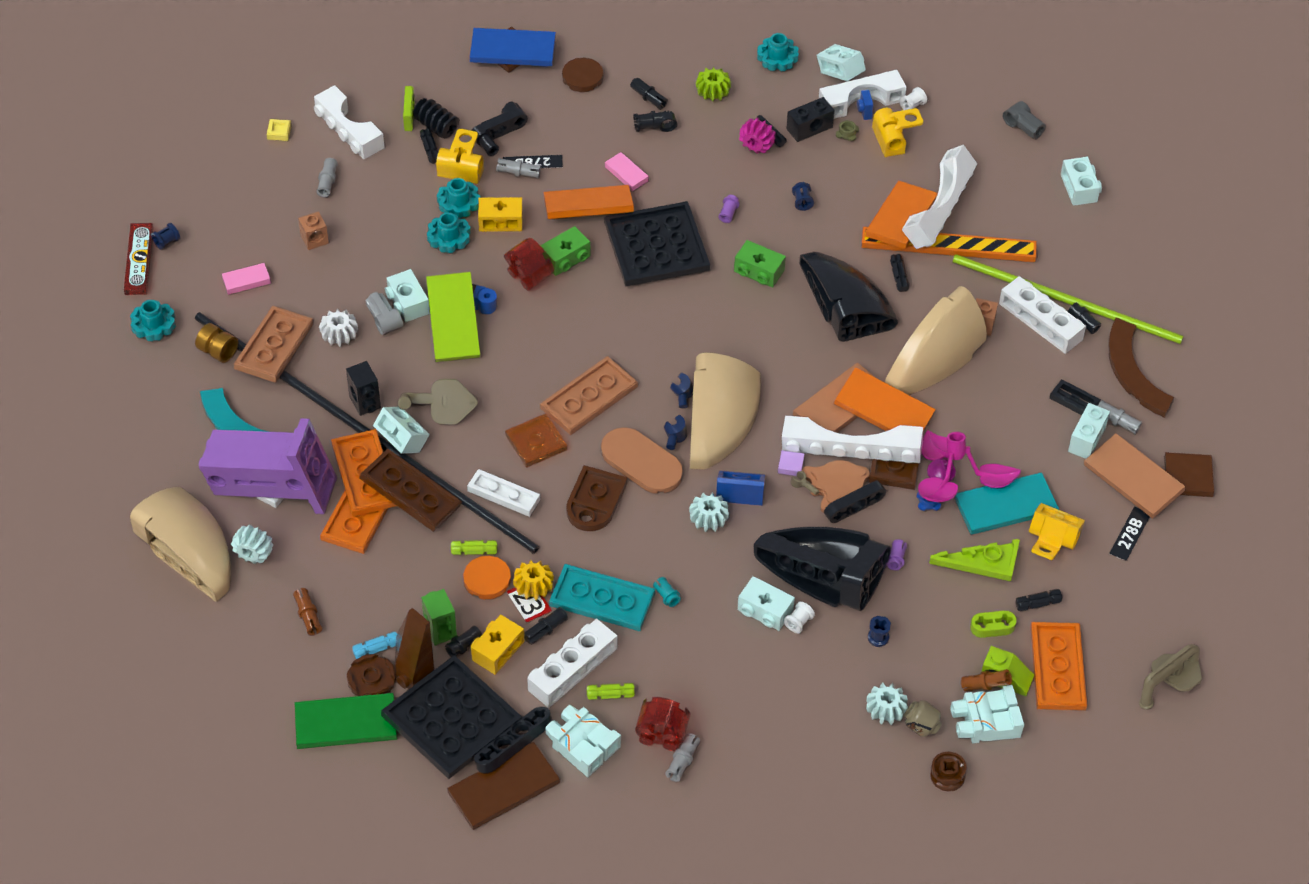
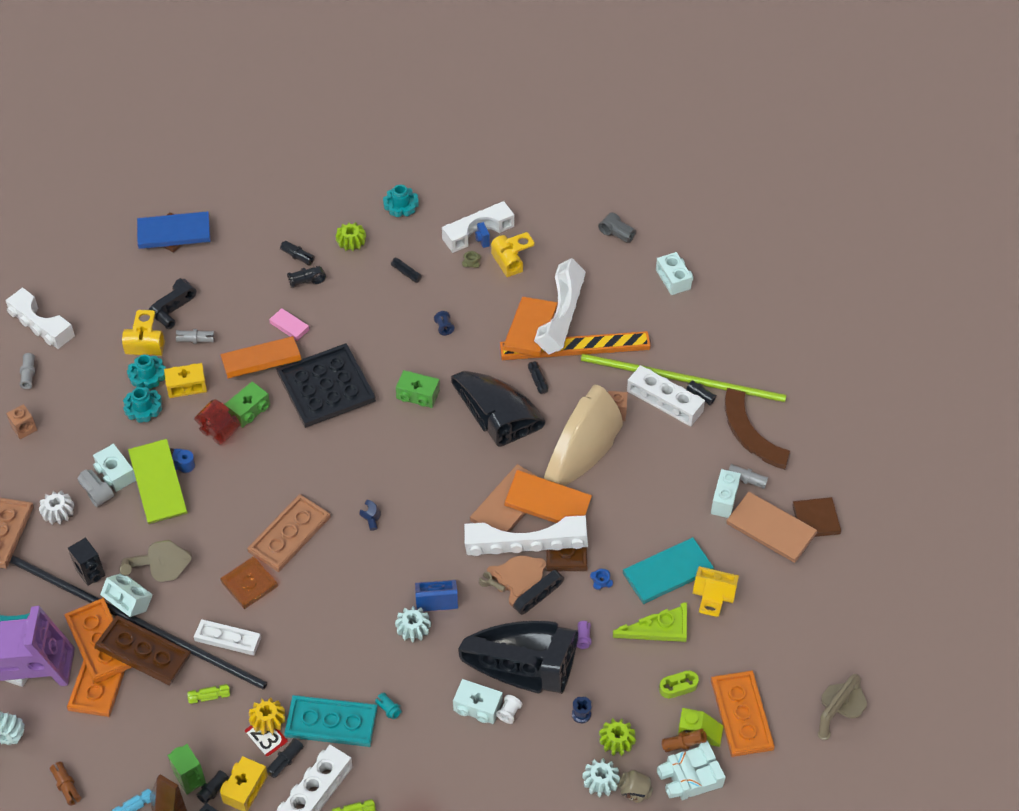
camera: 10 degrees left, 0 degrees up
(409, 102) = (91, 297): lime tile -> none
(429, 145) = (114, 327): black axle -> none
(435, 118) = (116, 302): black piece -> none
(487, 577) = (224, 720): orange tile -> none
(545, 161) = (216, 326): black sticker -> none
(582, 74) = (237, 244): reddish brown tile -> none
(595, 496) = (310, 626): reddish brown tile -> none
(641, 460) = (345, 585): nougat tile -> none
(676, 433) = (371, 555): dark blue piece -> none
(723, 407) = (408, 525): tan panel -> none
(730, 203) = (382, 344): medium lavender pin -> none
(757, 135) = (396, 276): dark pink gear -> none
(790, 463) = (476, 565): lavender tile -> none
(810, 119) = (438, 255): black brick -> none
(841, 62) = (455, 201): light aqua brick -> none
(913, 665) = (625, 740): none -> lime gear
(914, 99) = (522, 224): white bush -> none
(938, 469) = (607, 551): magenta hat -> none
(955, 448) = (600, 529): dark pink plant -> none
(1038, 599) = (713, 654): black axle -> none
(1072, 401) = (706, 468): black tile -> none
(1129, 534) = (778, 580): black sticker -> none

